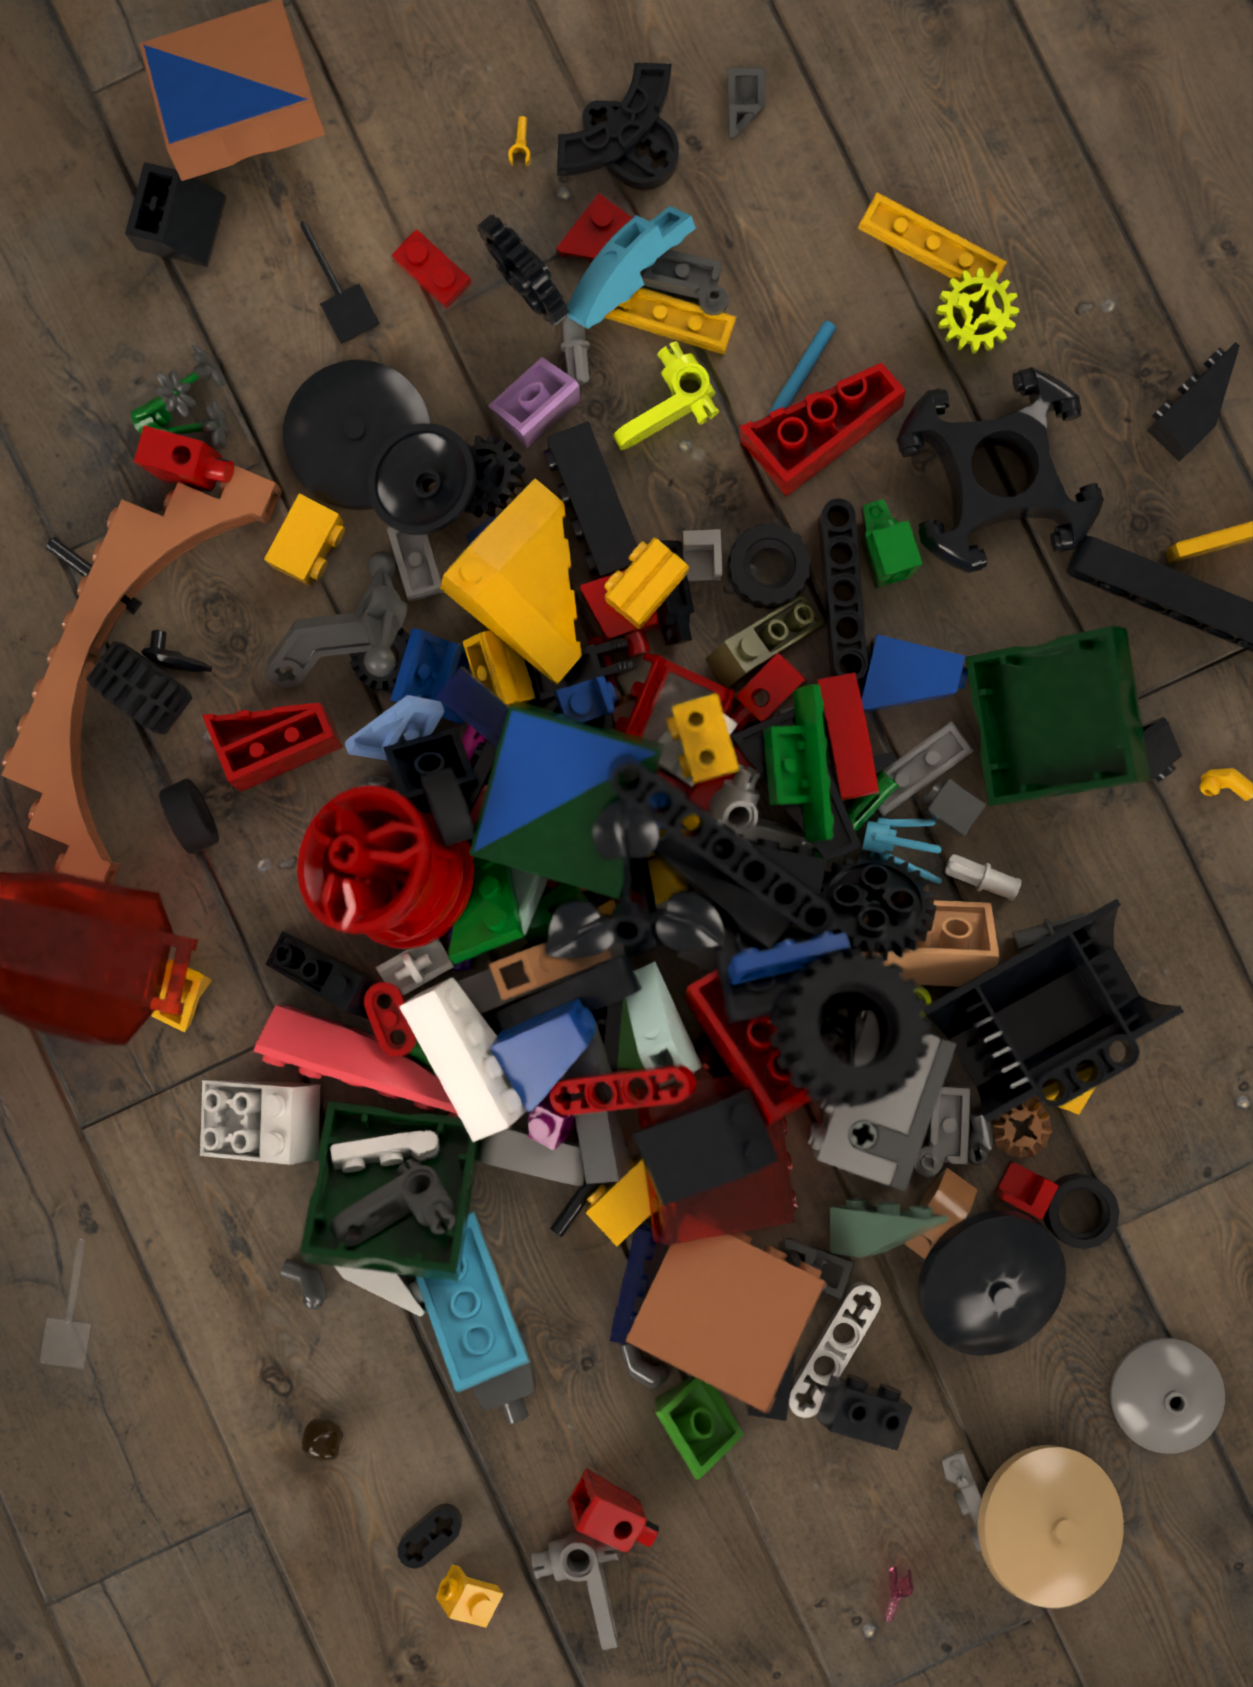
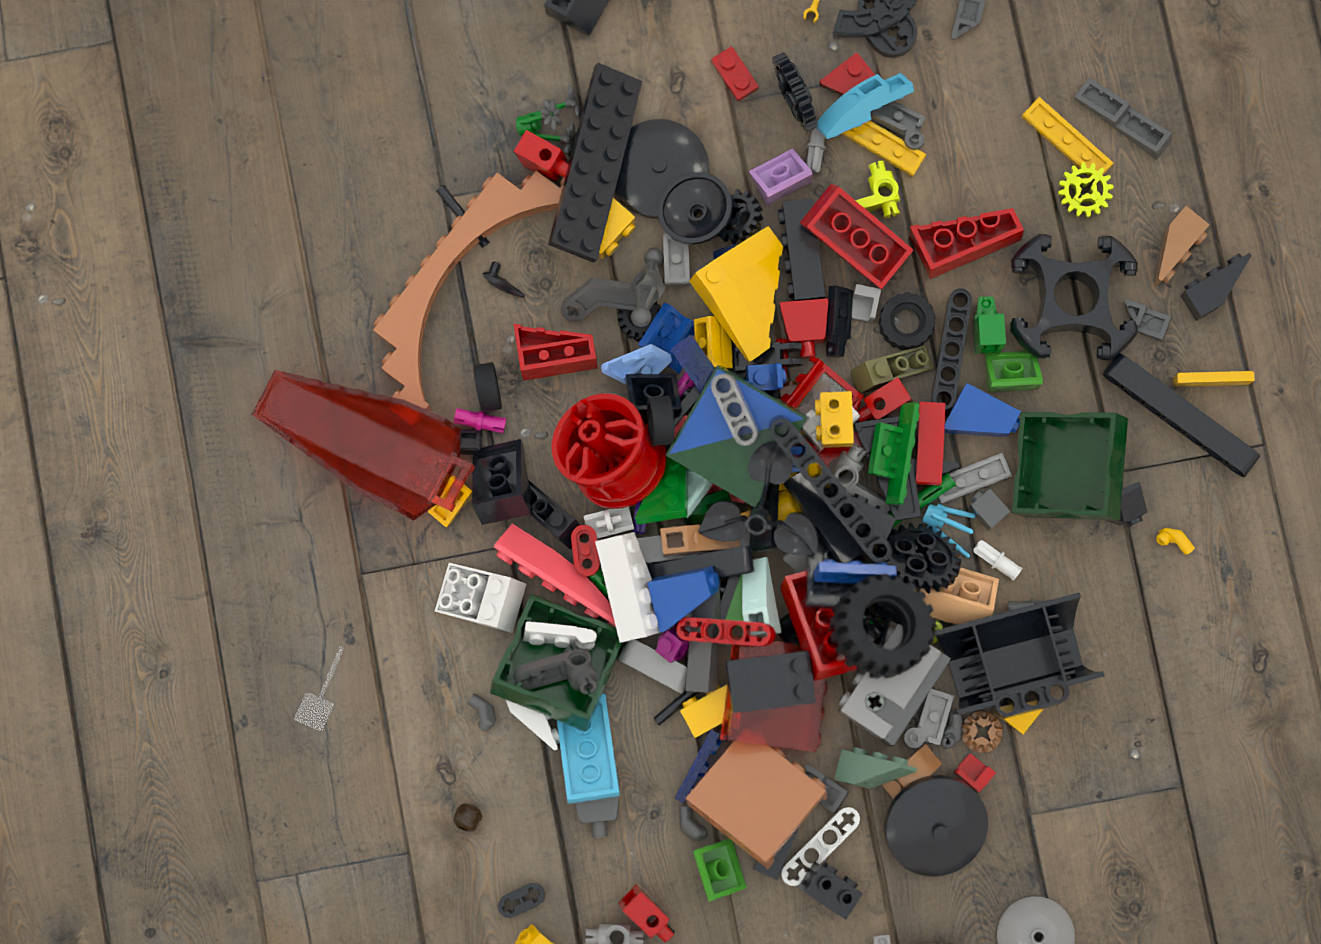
camera: 15 degrees right, 5 degrees down
(139, 688) = (478, 296): black tyre -> none
(185, 900) = (470, 442): none -> black tile
(192, 866) = (479, 420): none -> dark pink pin
(243, 950) = (500, 483): none -> black slope
(259, 450) = (595, 163): none -> black plate
(348, 310) = (674, 87): black piece -> none
(555, 784) = (724, 401): none -> light grey beam
(645, 582) = (823, 311): yellow brick -> none
(665, 460) = (856, 236): none -> red brick
(804, 366) = (976, 185): dark azure bar -> none
(937, 600) = (1012, 371): none -> bright green slope
(1011, 196) = (1123, 118): none -> dark grey slope
(1106, 1225) = (1027, 796): black tyre -> none
(1116, 479) = (1148, 322): none -> dark grey slope
(1126, 349) = (1178, 238): none -> medium nougat slope

